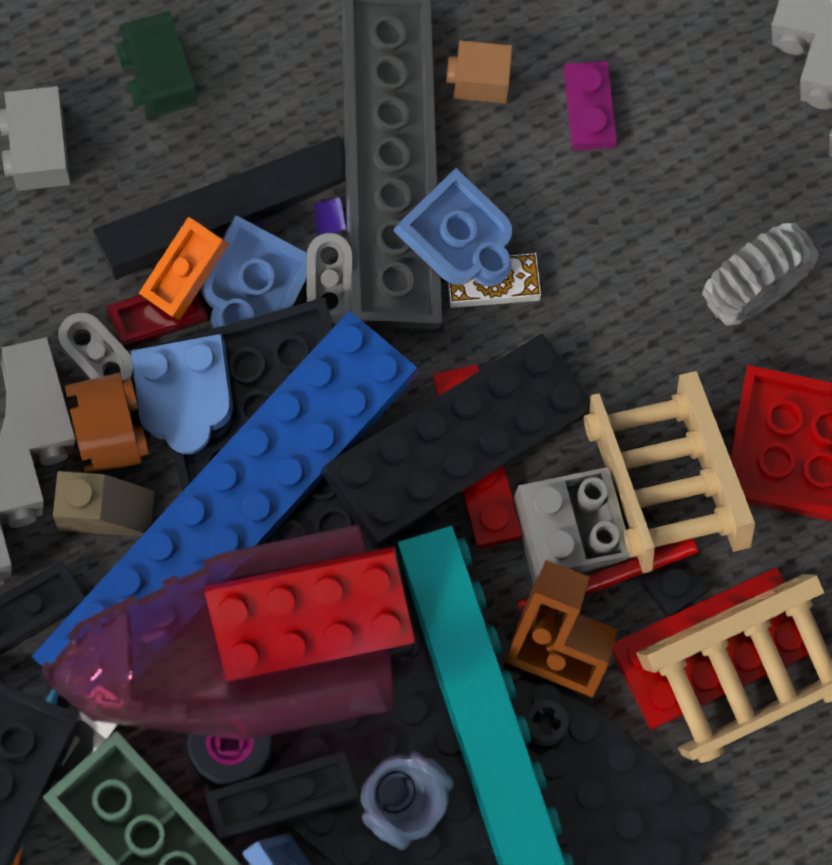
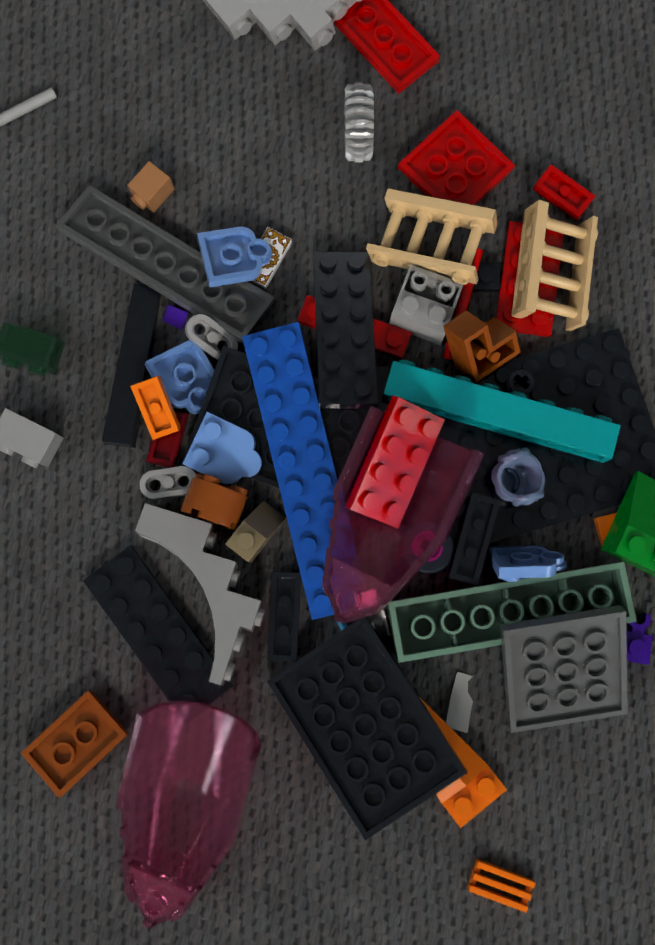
camera: 50 degrees left, 10 degrees up
(589, 106) = (205, 148): magenta plate -> none

